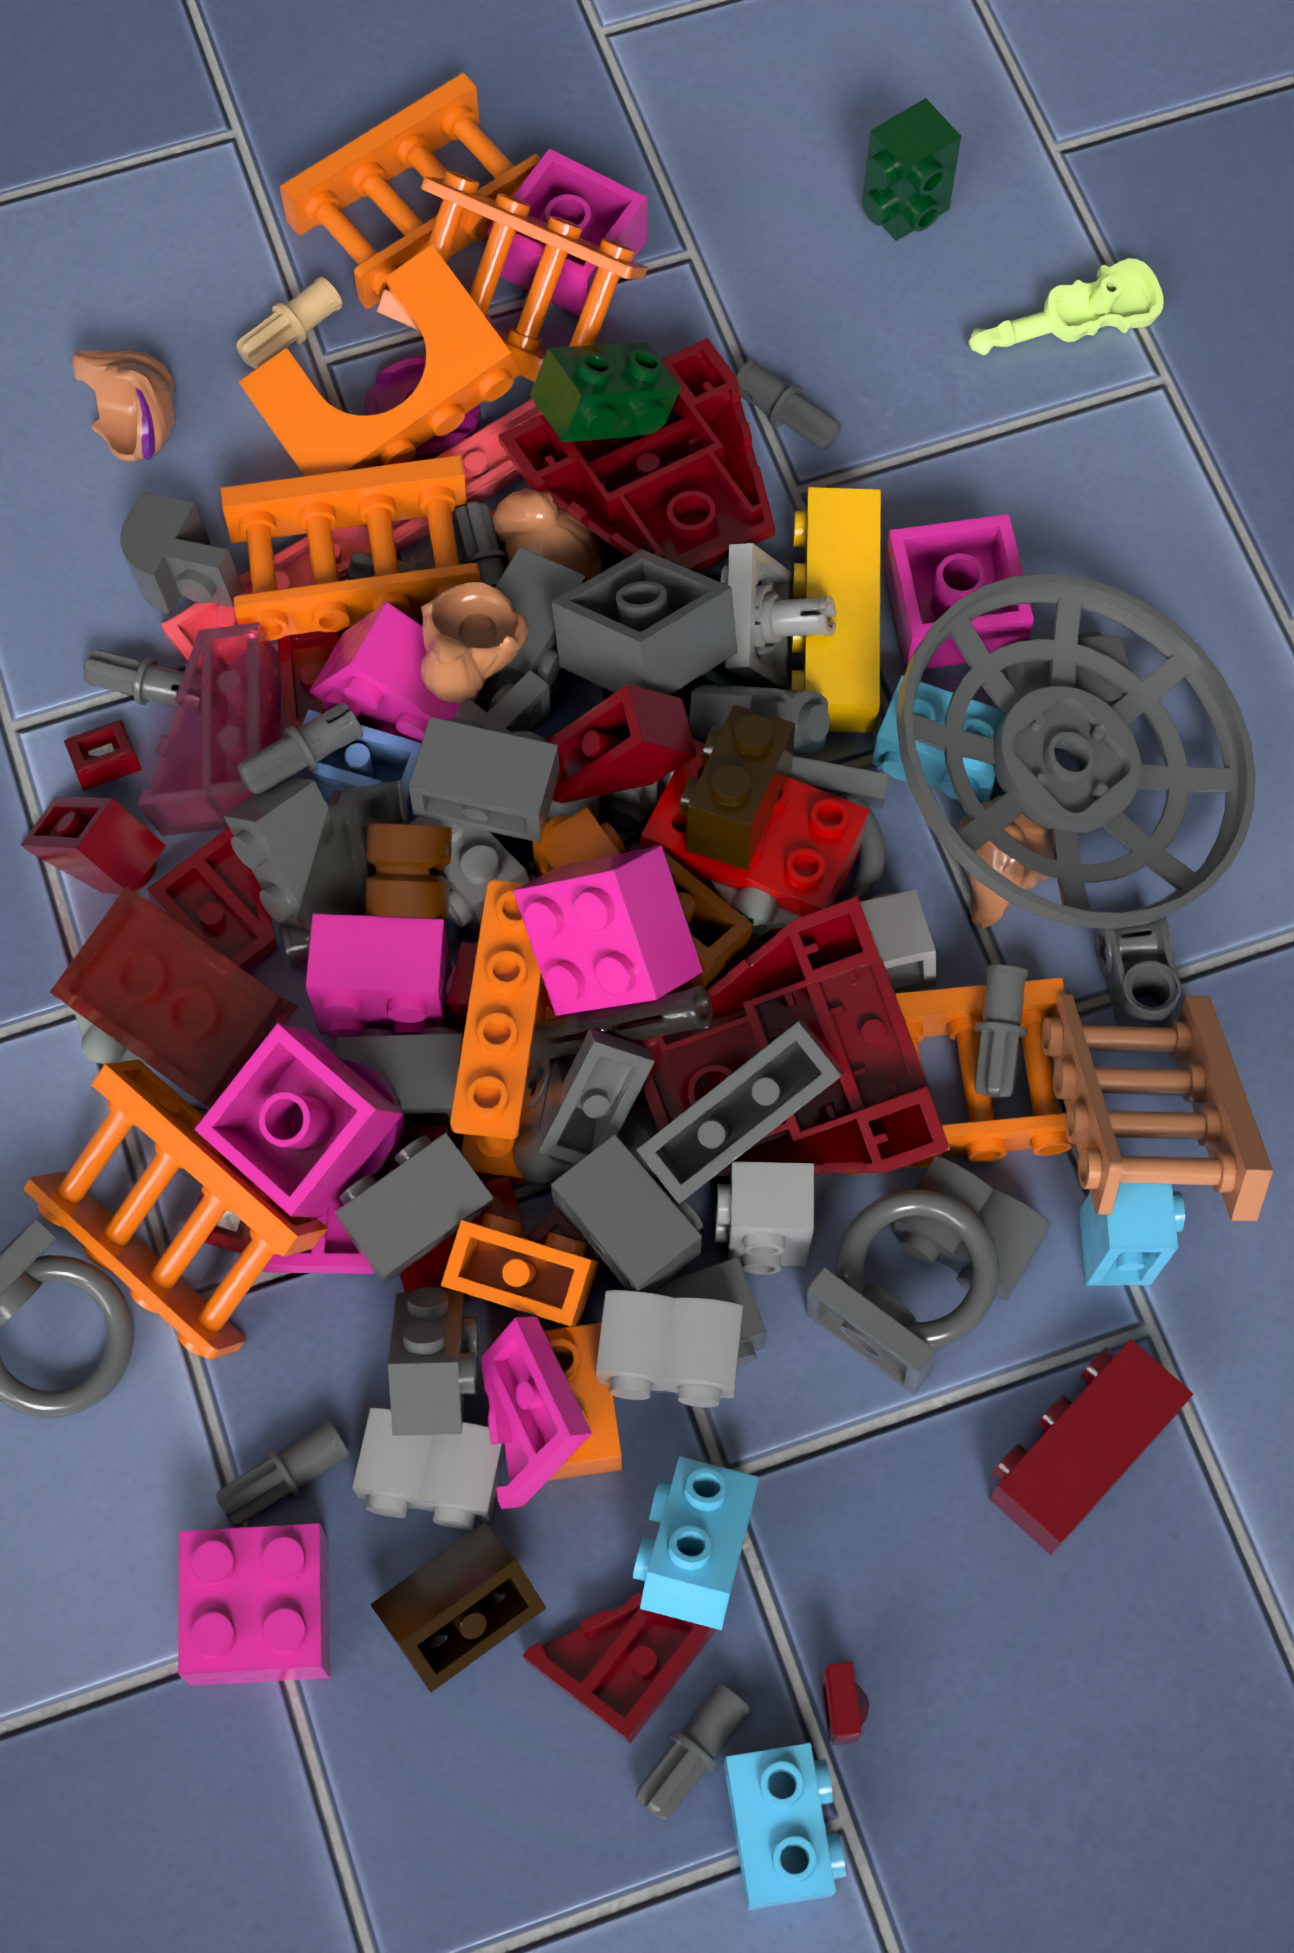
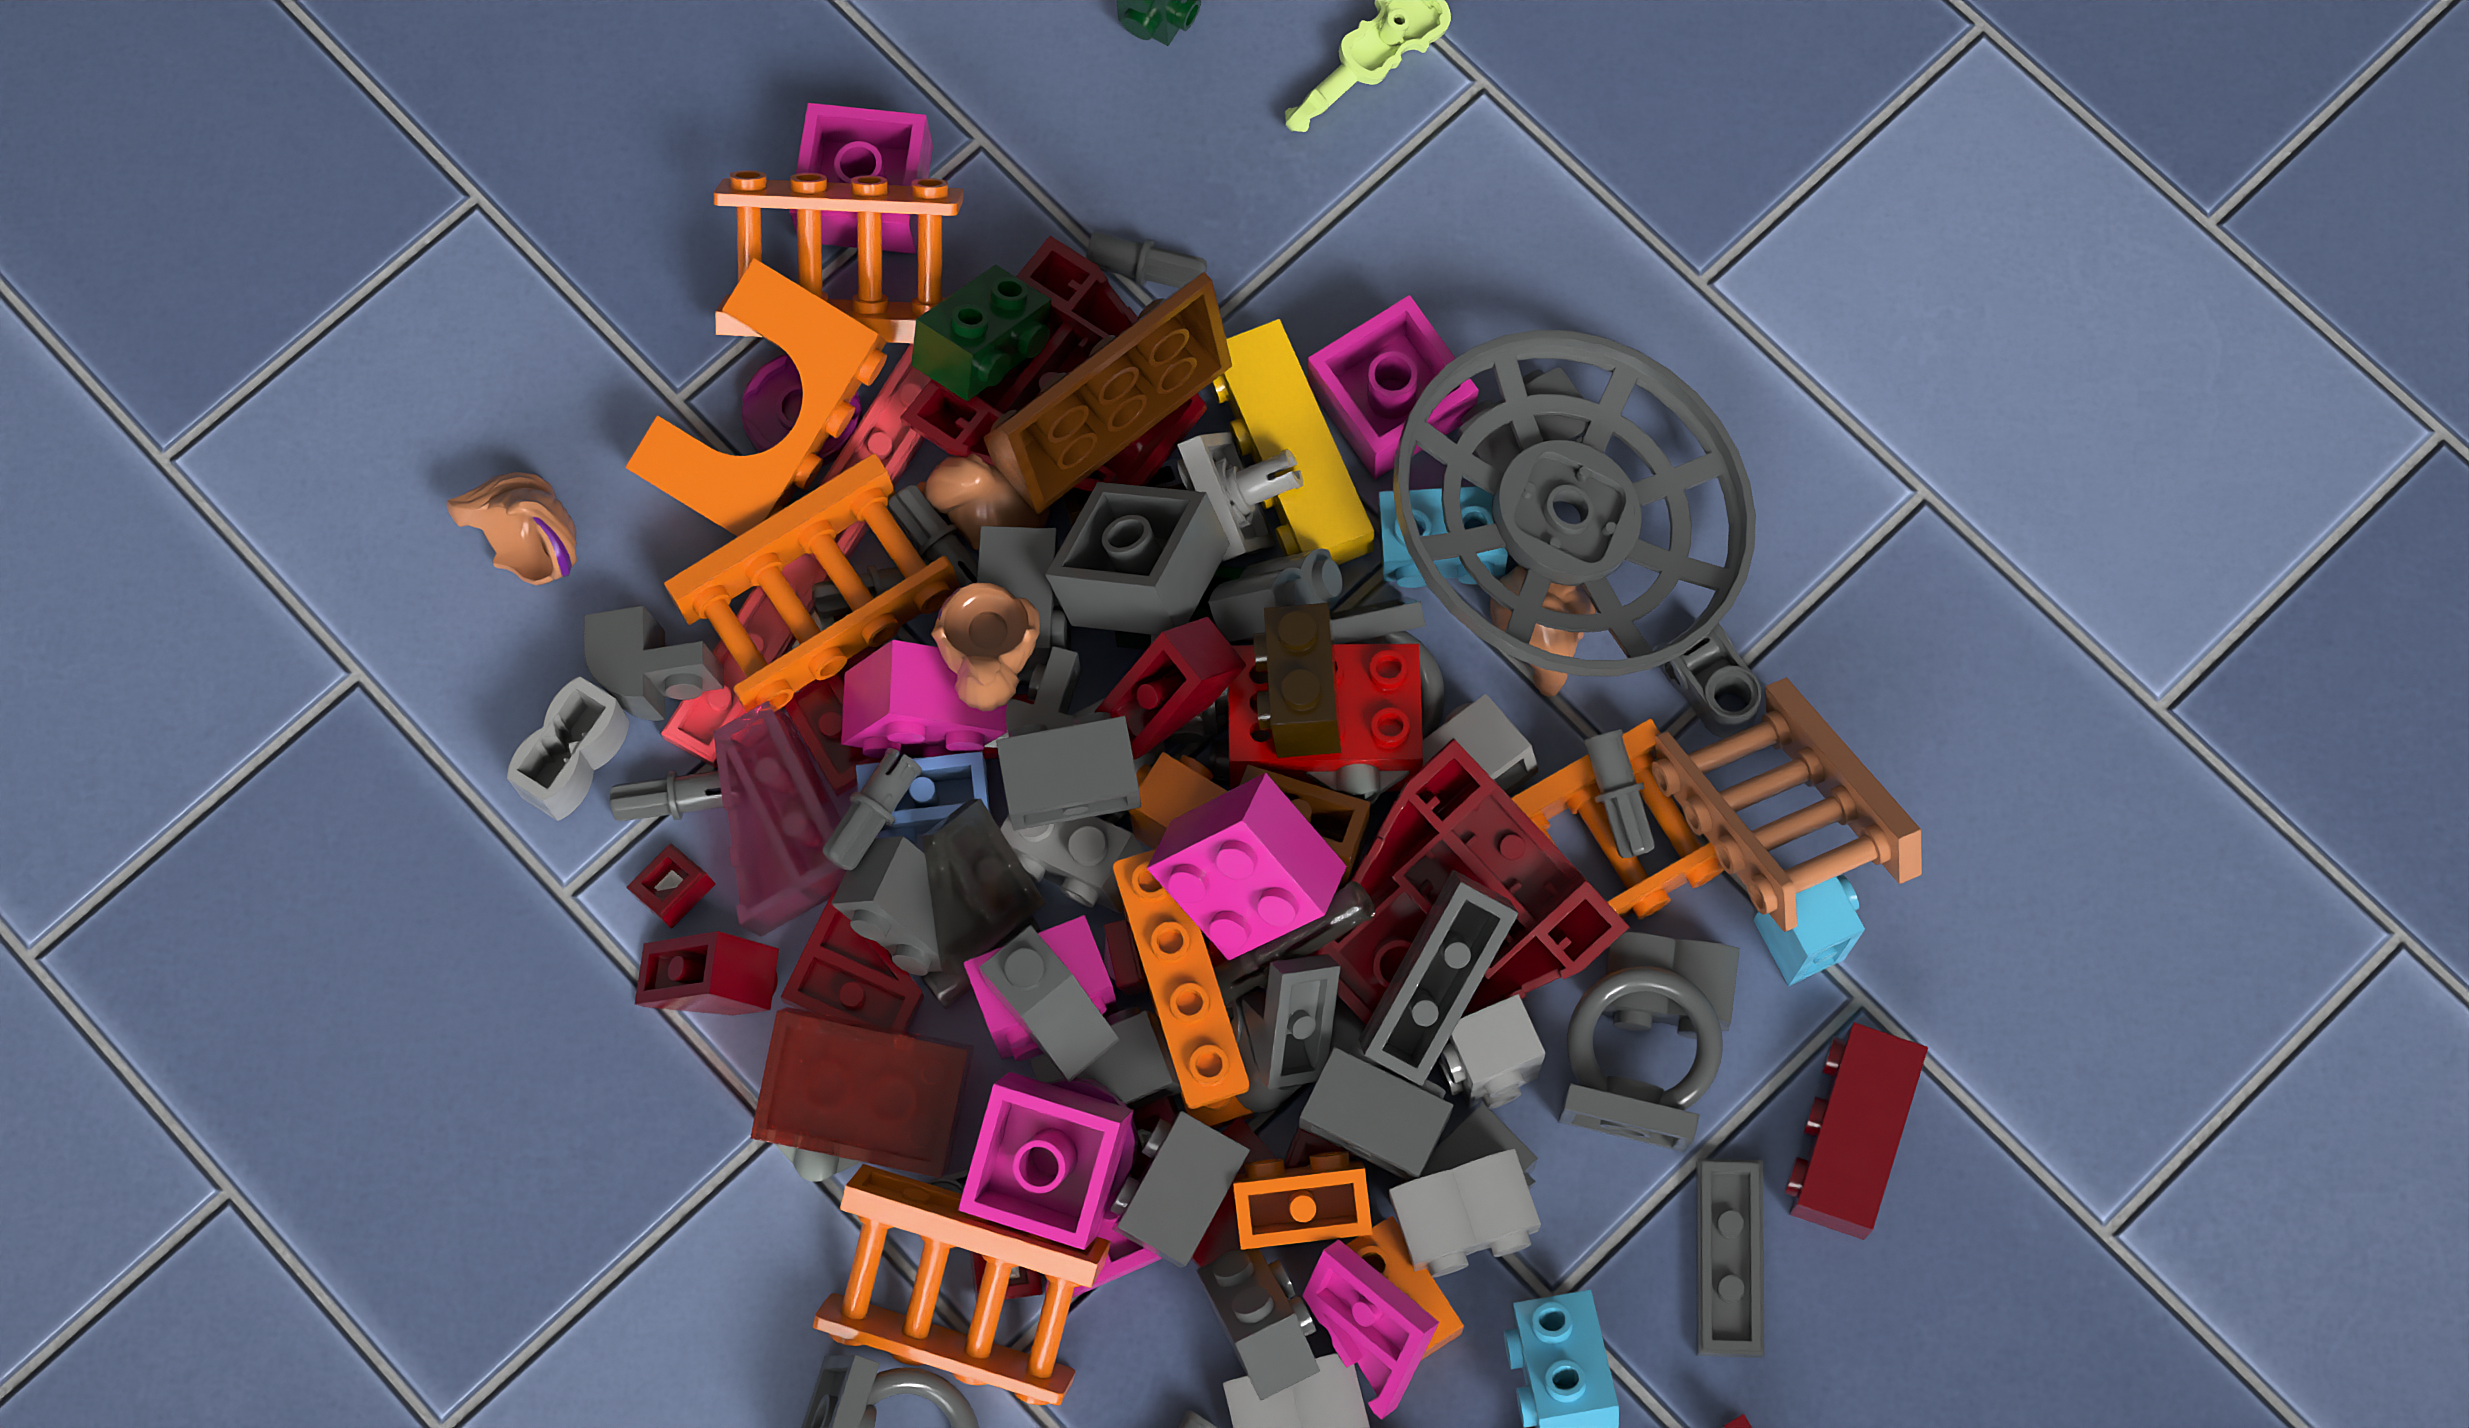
camera: 20 degrees left, 5 degrees up
(65, 601) = (559, 760): none -> light grey brick
(289, 323) = (631, 378): tan axle -> none
(367, 977) = (1048, 1003): none -> dark grey slope
(380, 155) = (628, 182): orange fence -> none
(408, 871) = (1028, 882): reddish brown wheel -> none
(689, 468) = (1112, 395): none -> reddish brown slope
(911, 1513) = (1729, 1258): none -> dark grey tile

